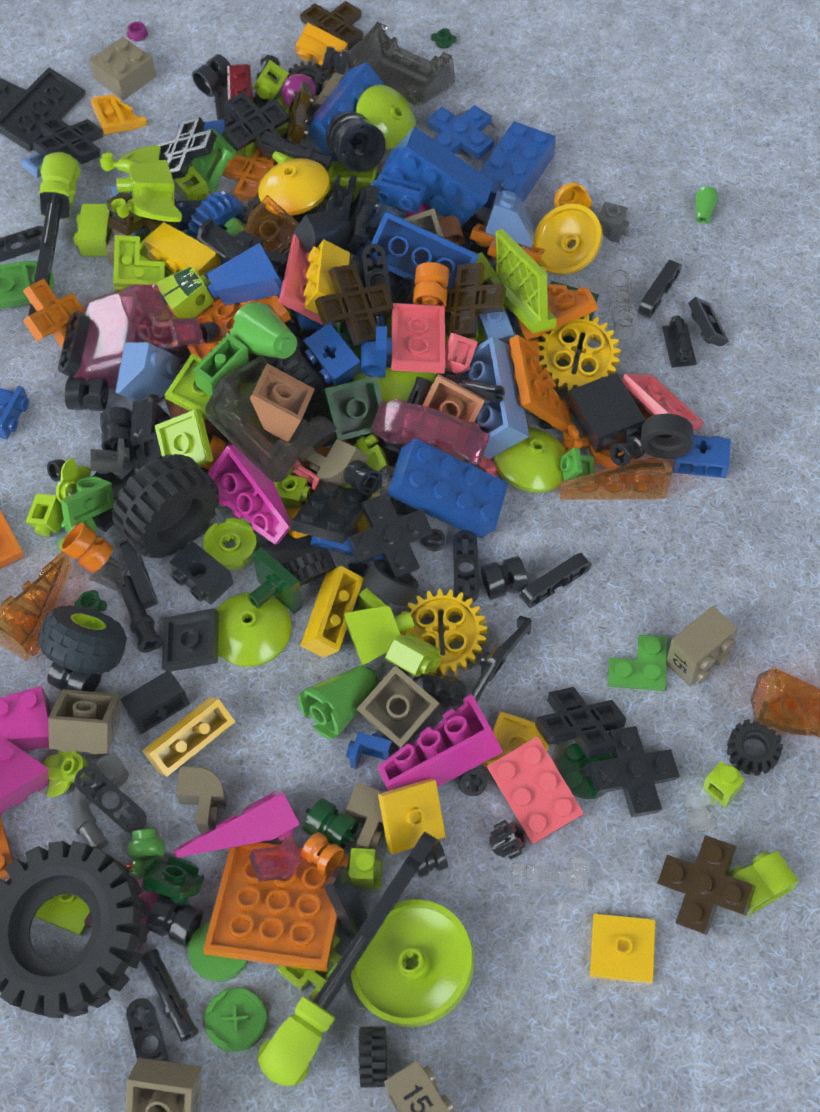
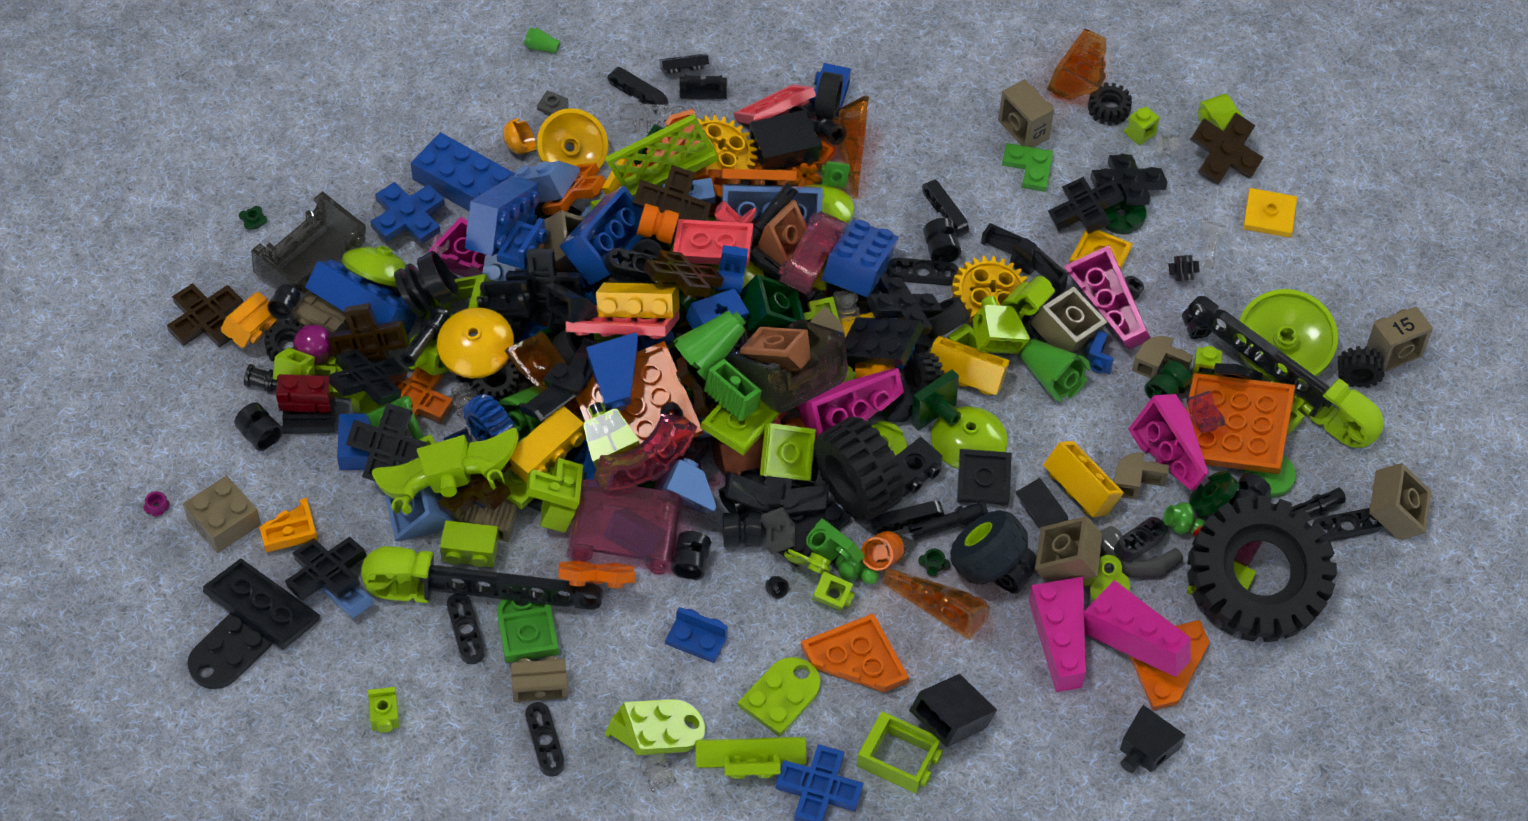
camera: 90 degrees left, 5 degrees down
(74, 343) = (626, 562): black beam -> none
(235, 1019) = (1325, 466): bright green tile -> none
(321, 852) = (1200, 381): orange wheel -> none
(362, 477) = (849, 311): black wheel -> none
(409, 813) = (1166, 322): yellow plate -> none
(535, 790) = (1143, 243): coral plate -> none

